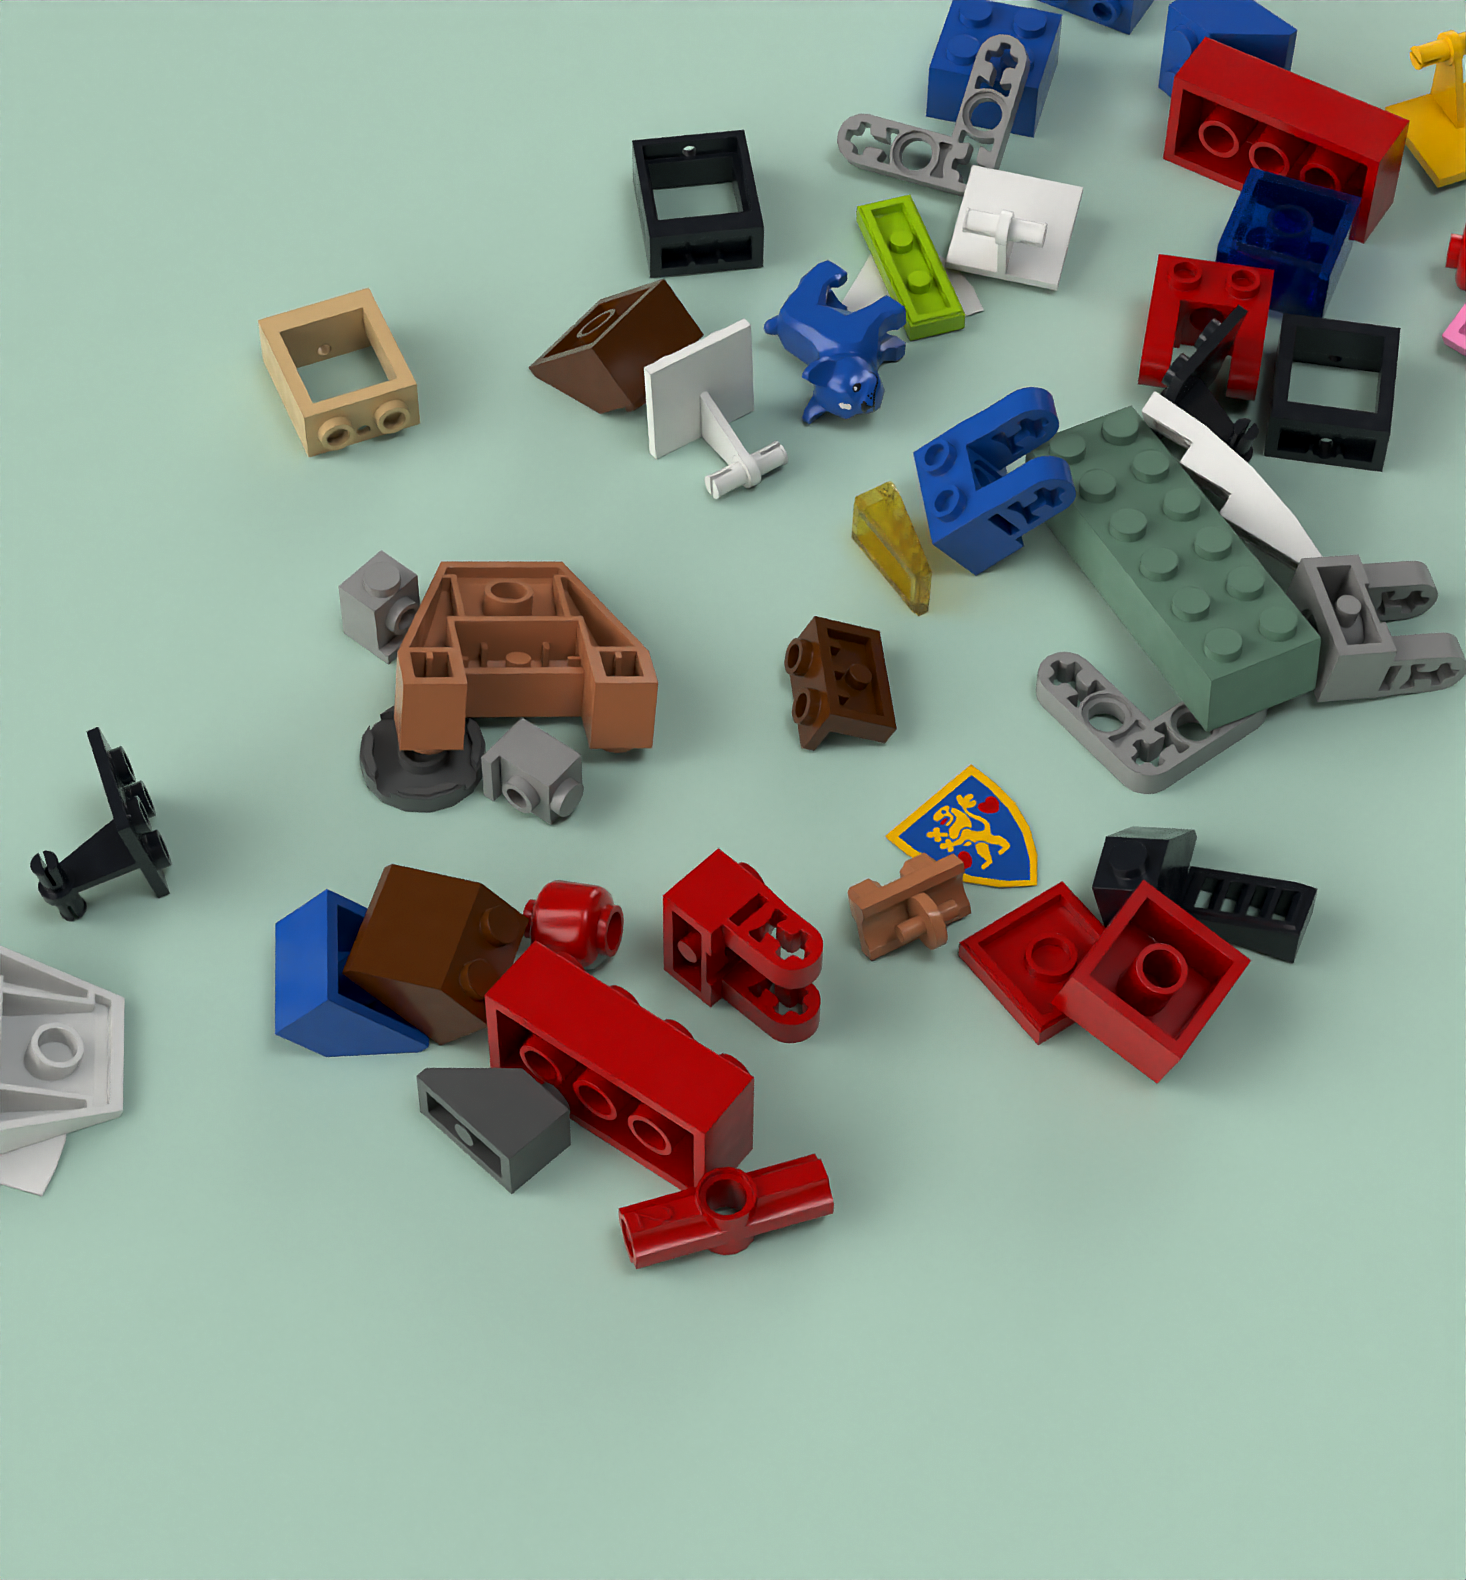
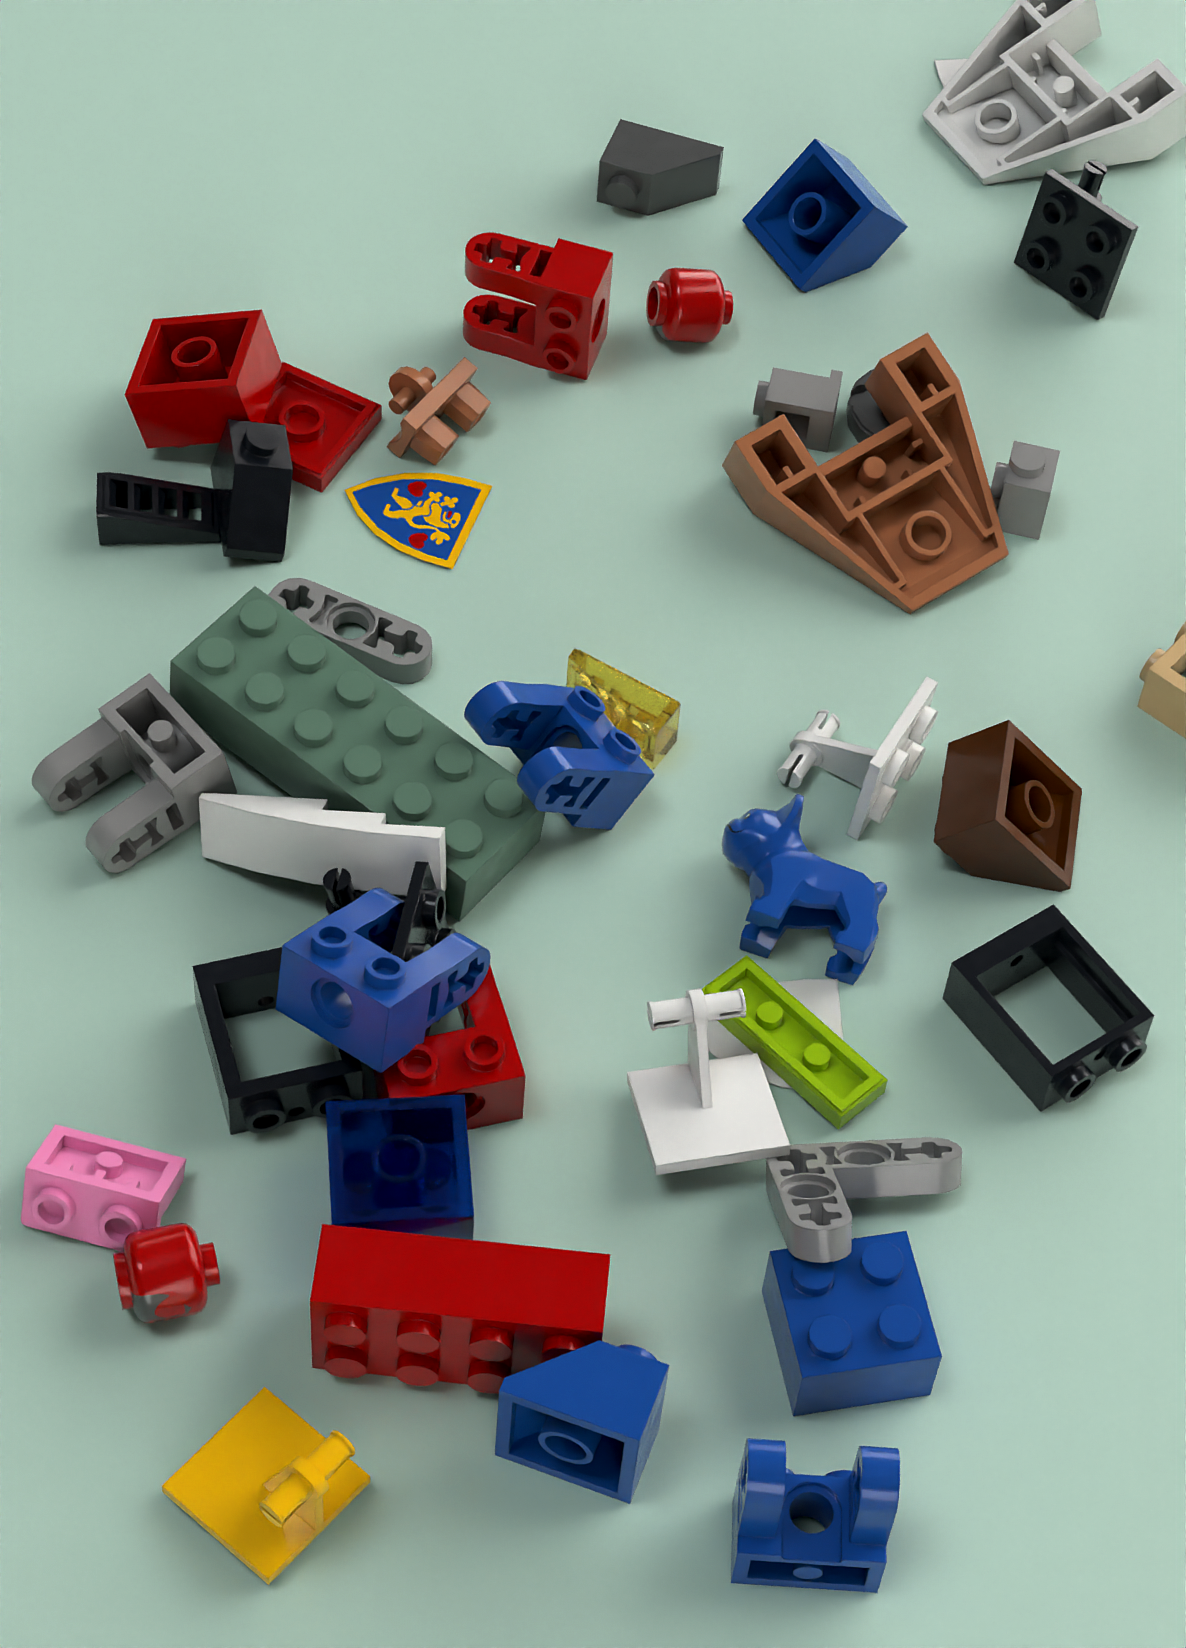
camera: 150 degrees right, 0 degrees up
(434, 949) = (771, 228): reddish brown slope -> none
(621, 1067) = (580, 188): red brick -> none
(687, 1219) = (450, 164): red piece -> none
(839, 683) = (593, 569): reddish brown bracket -> none
(1292, 321) = (363, 997): none -> blue brick

